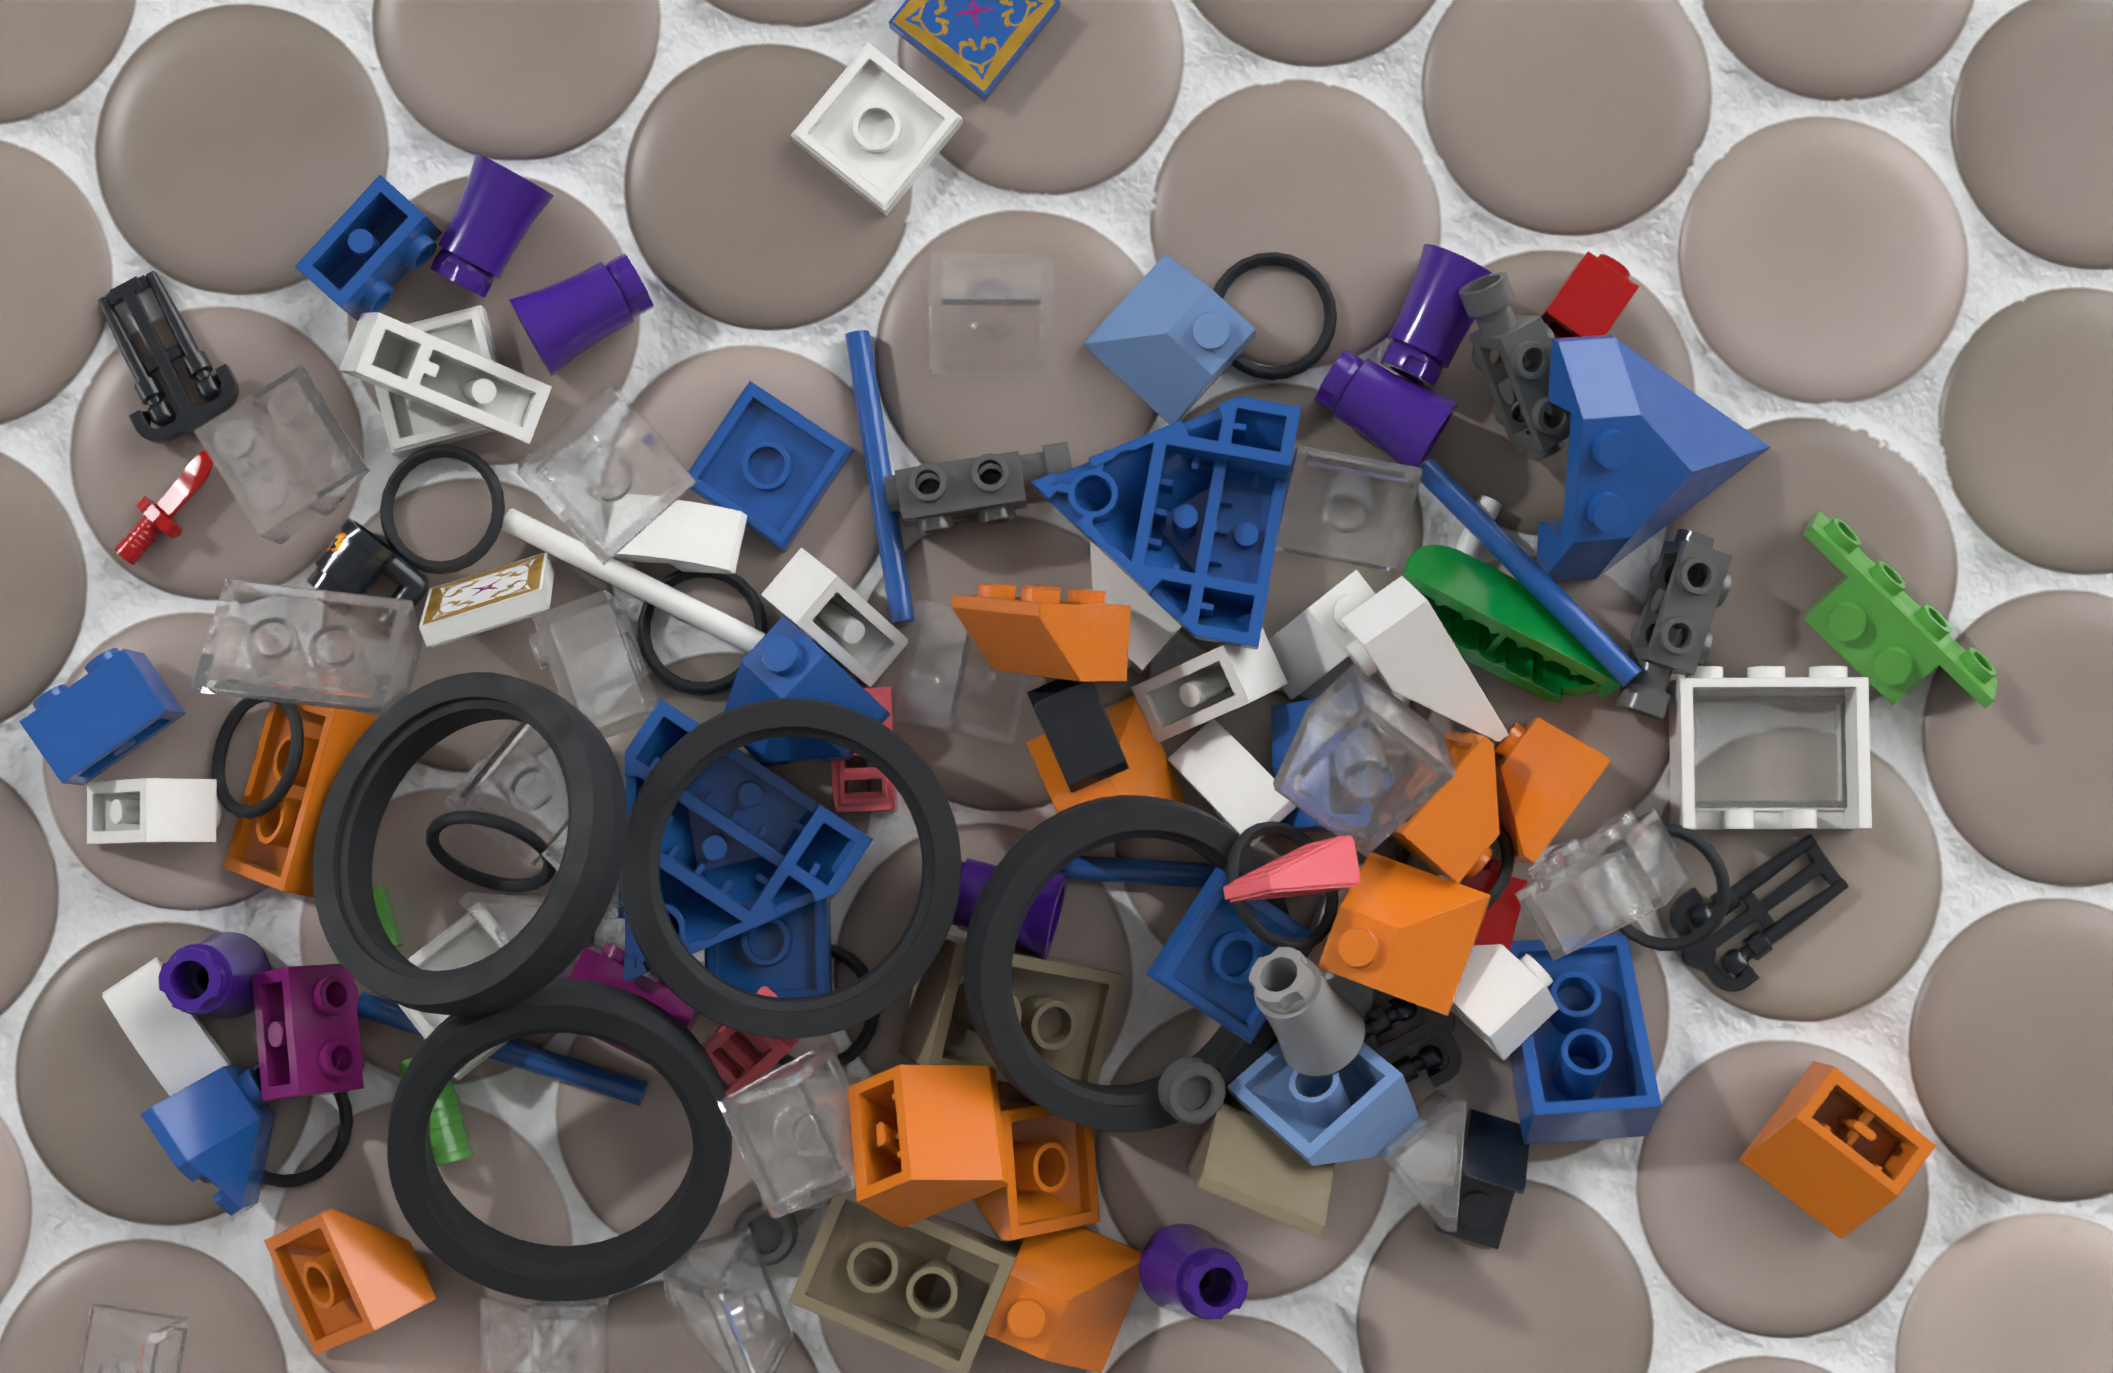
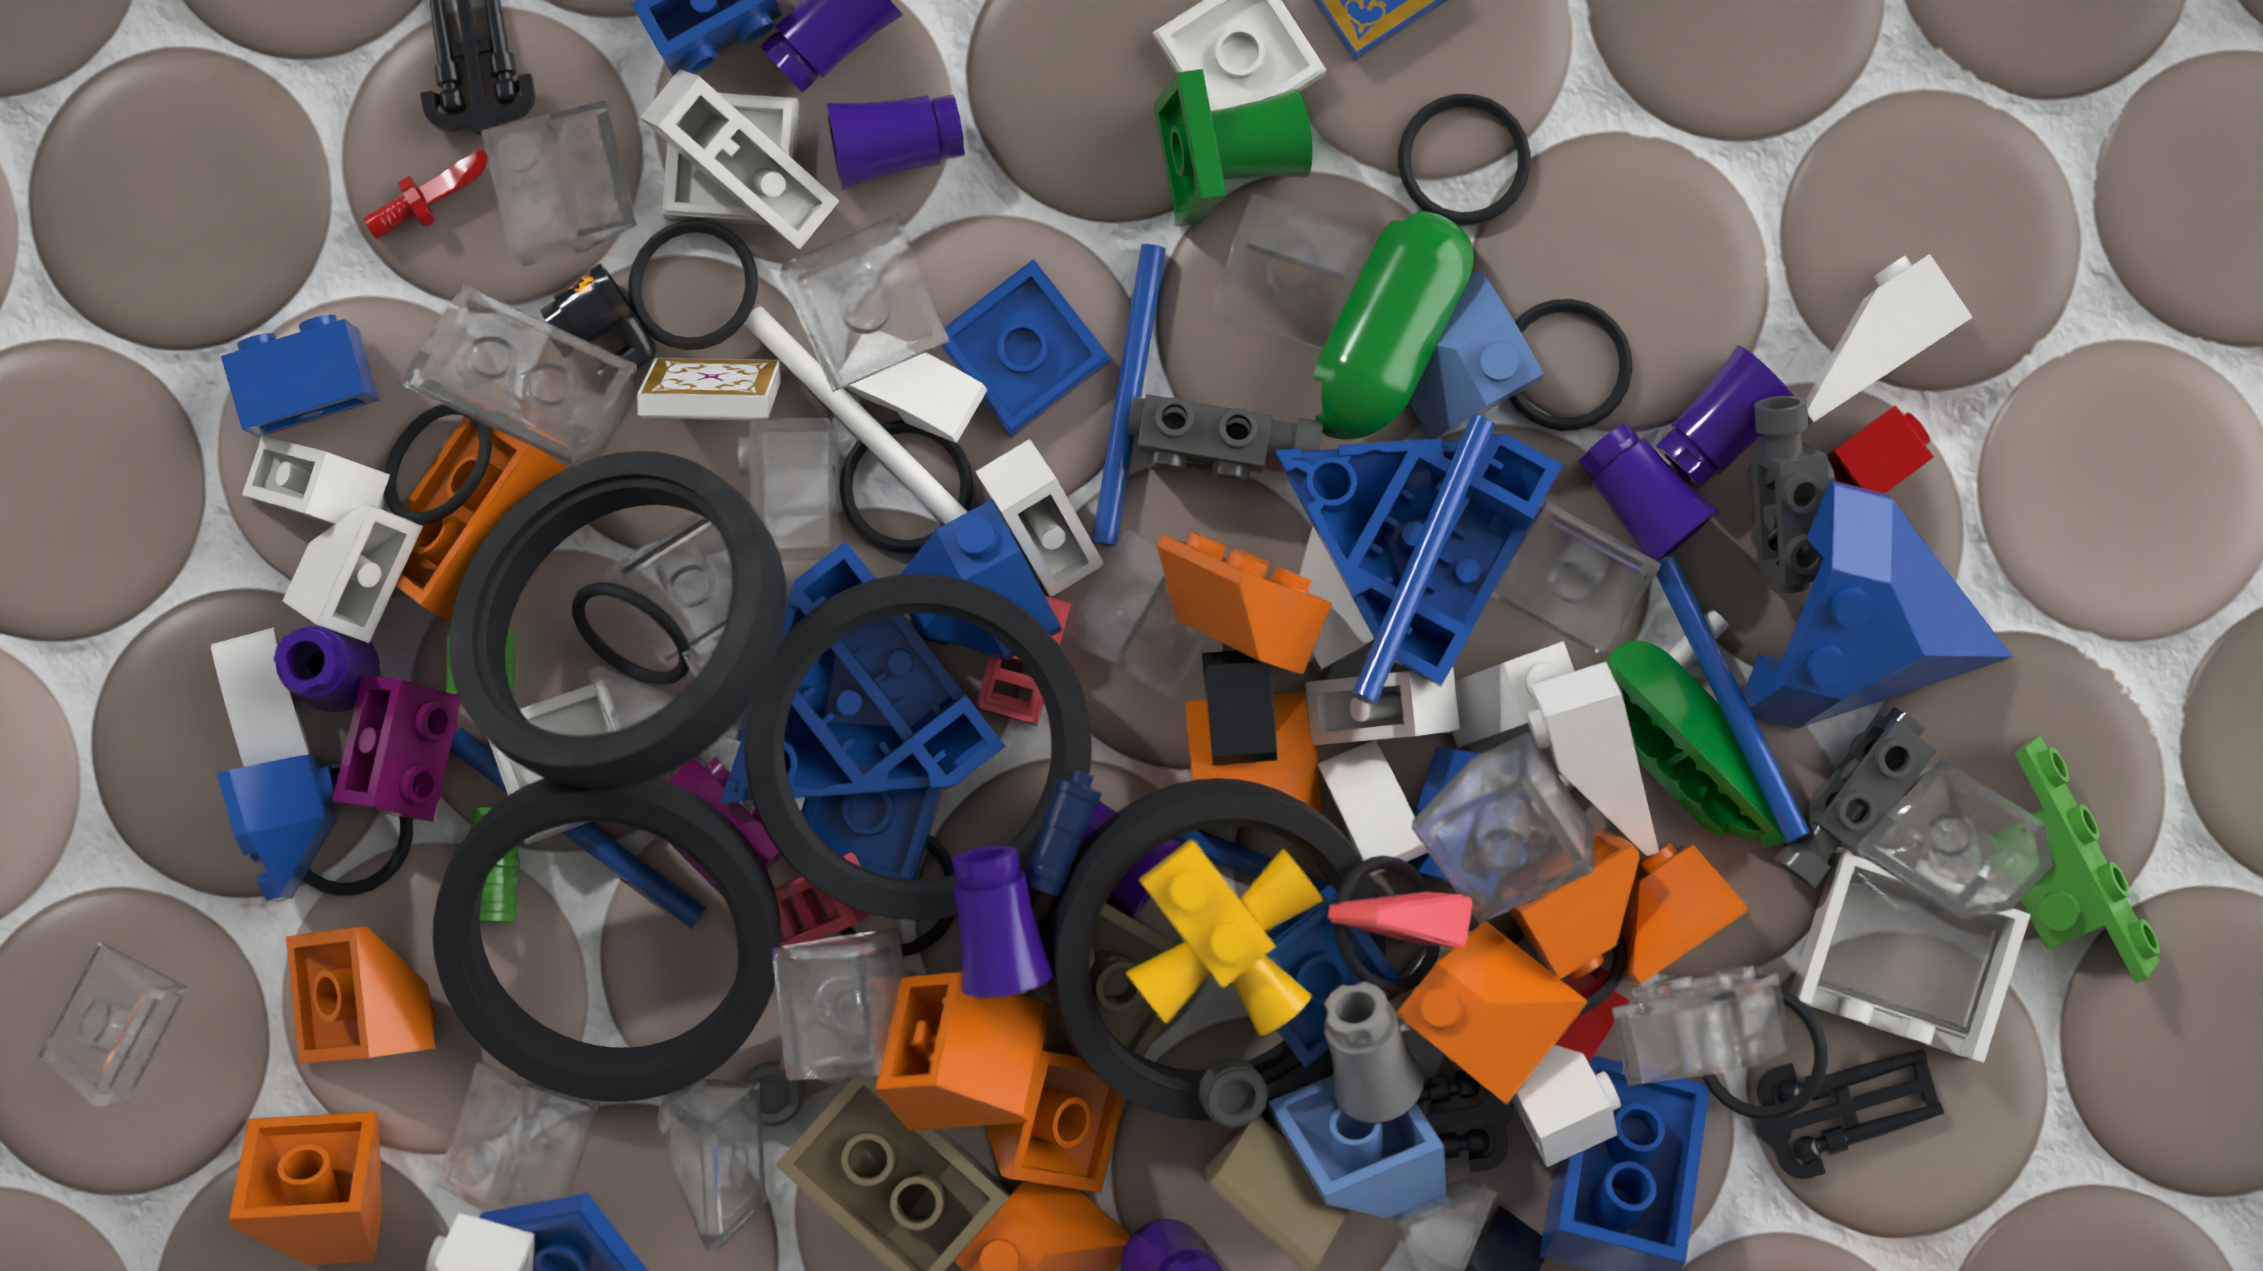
camera: 20 degrees right, 0 degrees up
(211, 880) = (353, 571): none -> white slope
(898, 211) = (1227, 143): none -> green plant
(919, 1010) = (997, 925): none -> dark purple plant
(951, 903) = (1062, 832): none -> dark blue piece
(1100, 330) = (1392, 323): none -> green brick
(1134, 949) = (1224, 936): none -> yellow brick
(1141, 107) = (1496, 110): none -> black tyre
(1202, 537) = (1423, 559): none -> blue axle
(1557, 182) = (1890, 326): none -> white slope
(1783, 634) = (1960, 844): none -> clear slope

